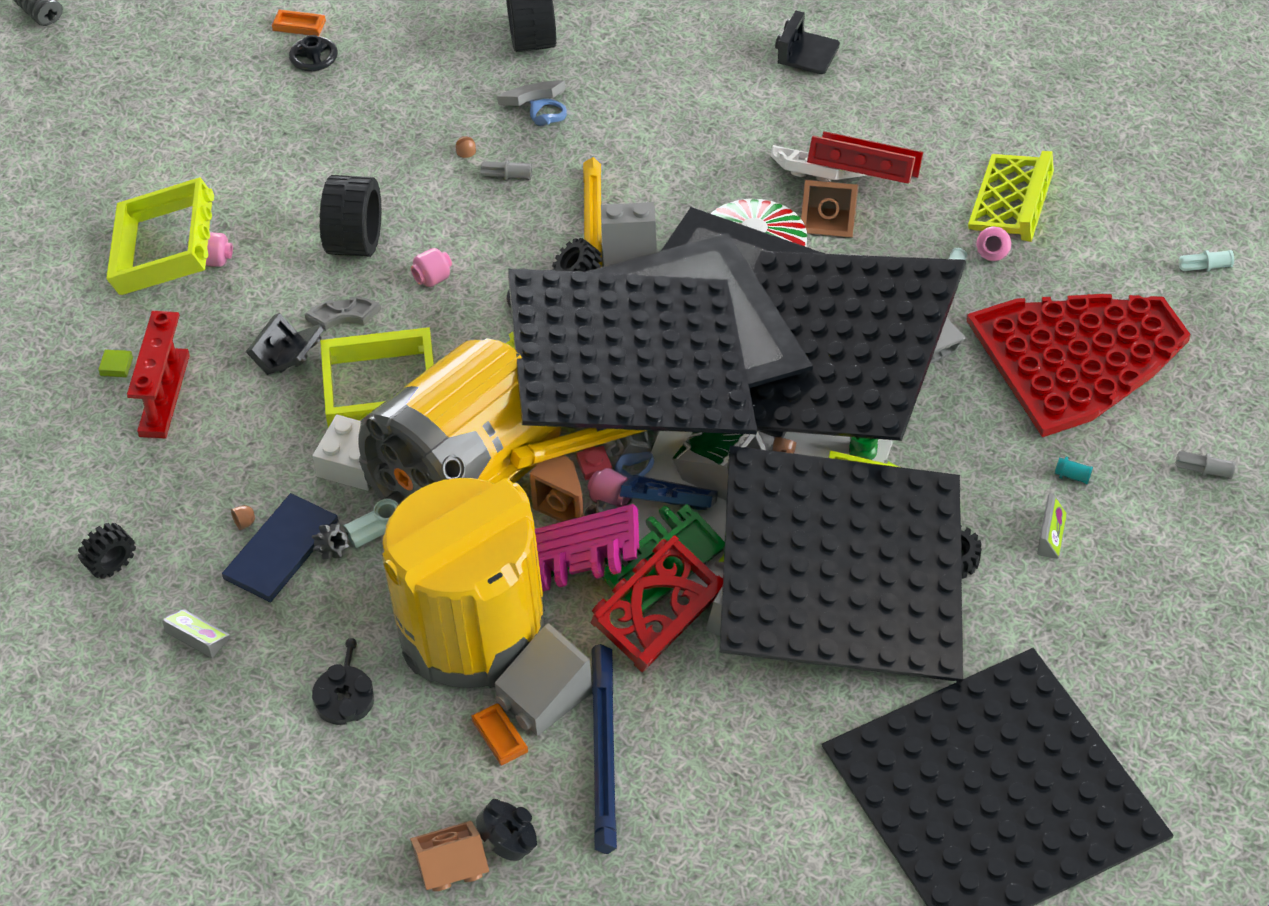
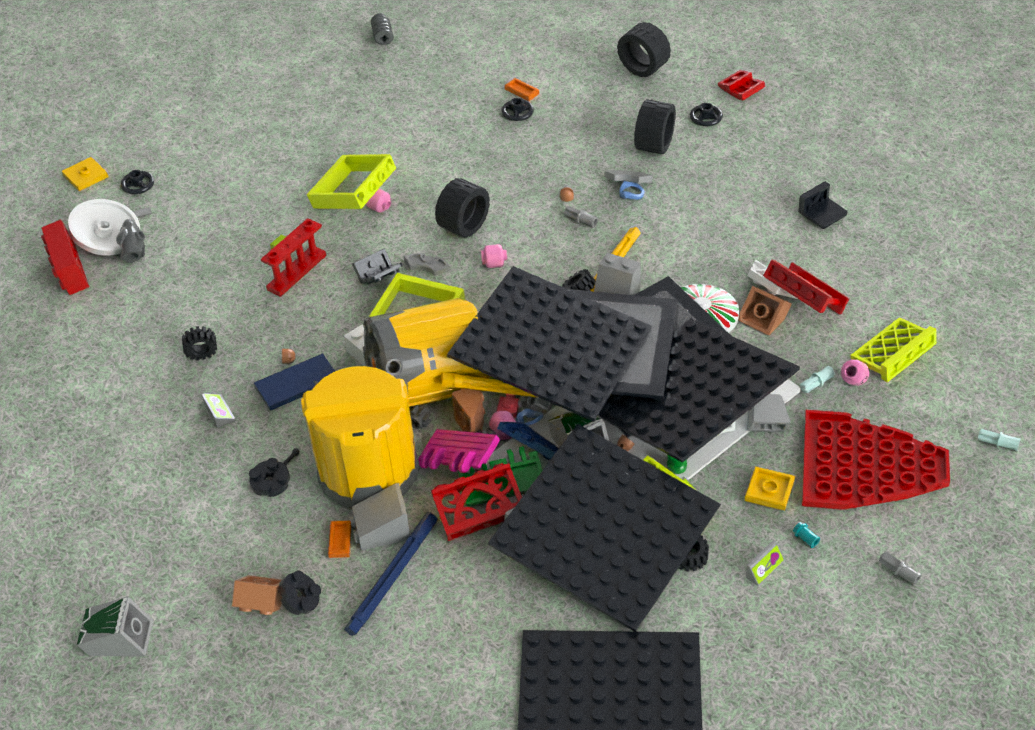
camera: 30 degrees right, 5 degrees down
(992, 431) = (770, 488): none -> yellow plate

